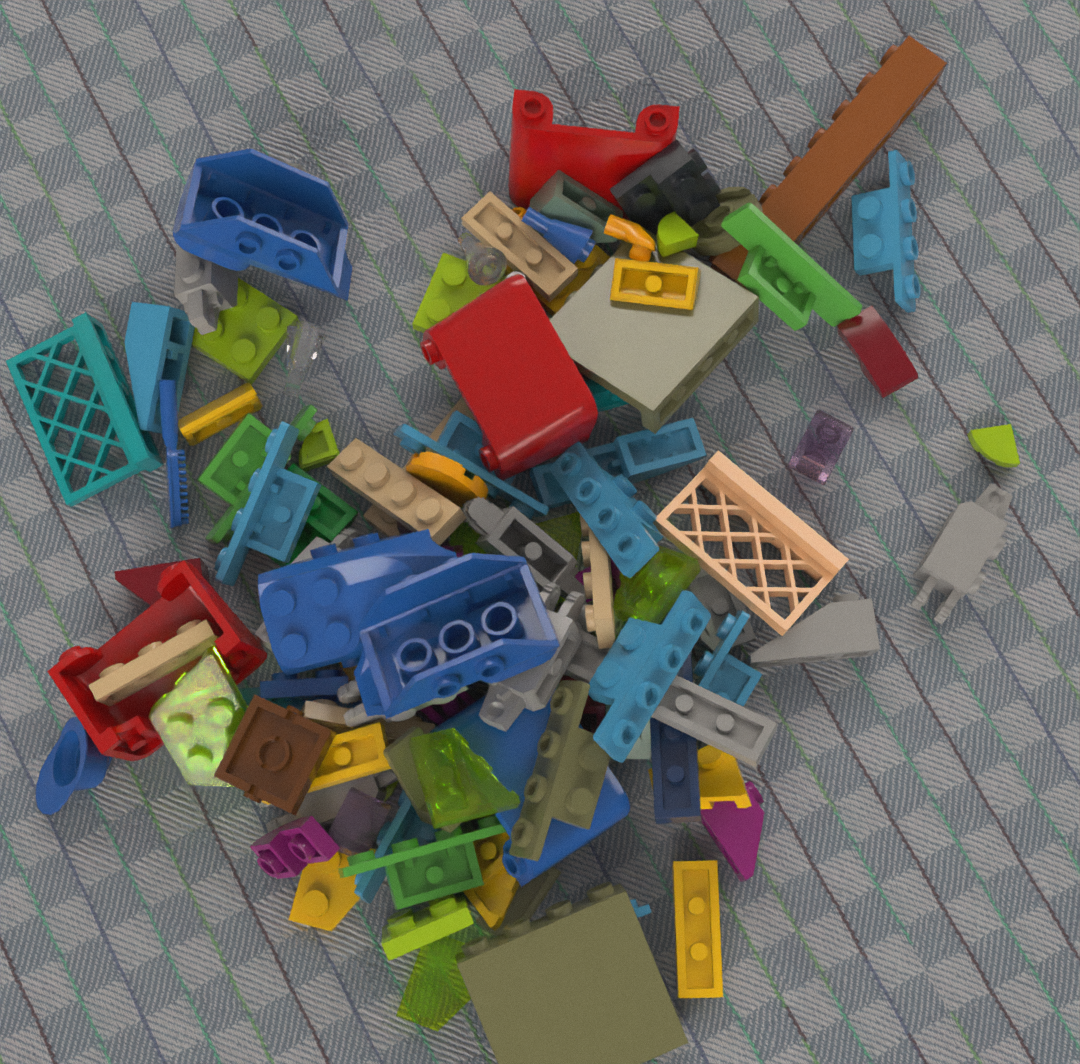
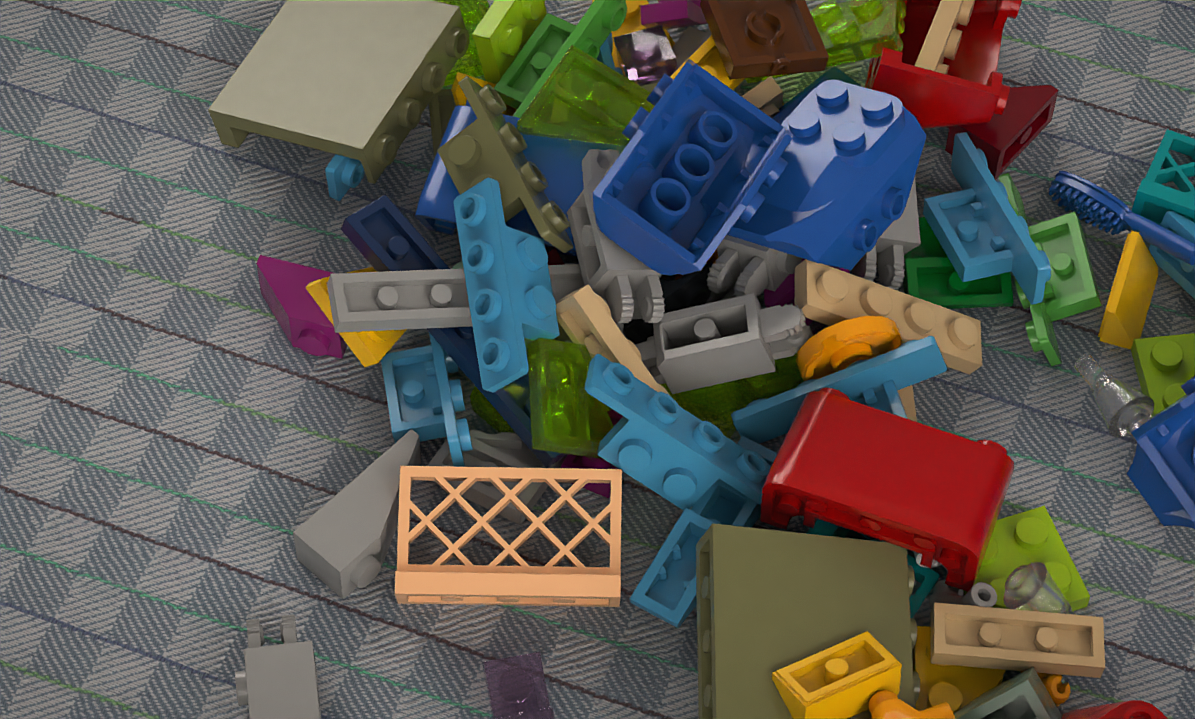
camera: 140 degrees right, 20 degrees down
(318, 447) = (1007, 340): lime tile -> none
(567, 238) = (977, 675): blue cone -> none
(697, 929) = (273, 209): yellow plate -> none

